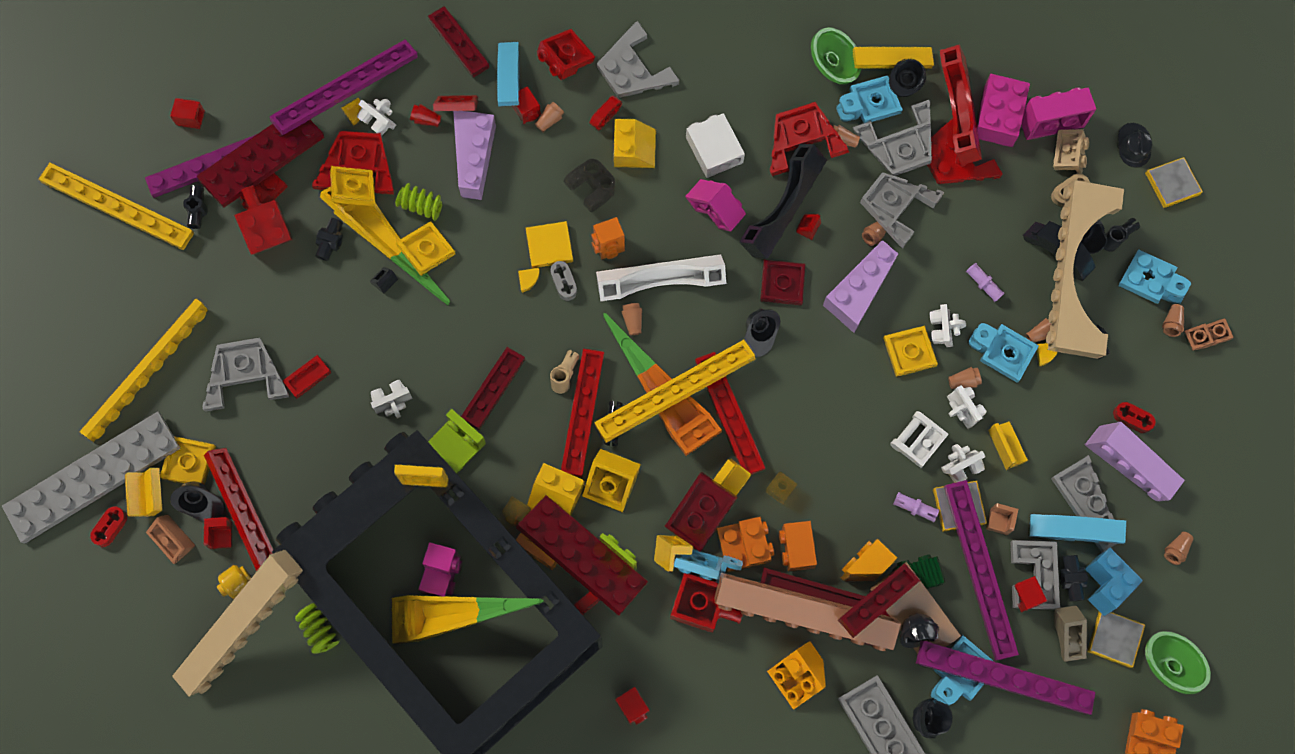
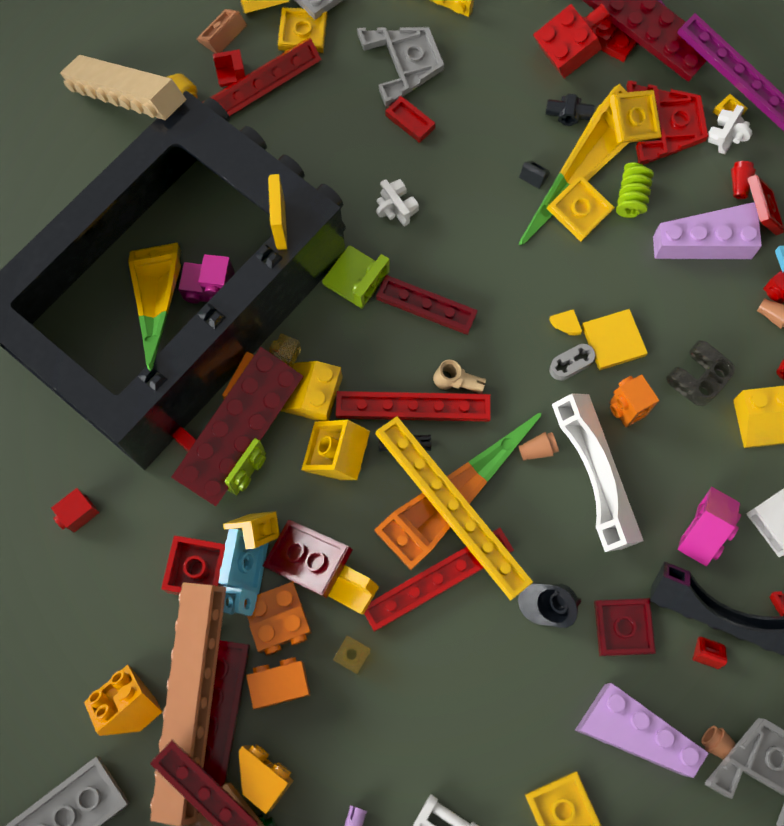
camera: 85 degrees right, 0 degrees up
(196, 501) = (261, 41): black piece -> none

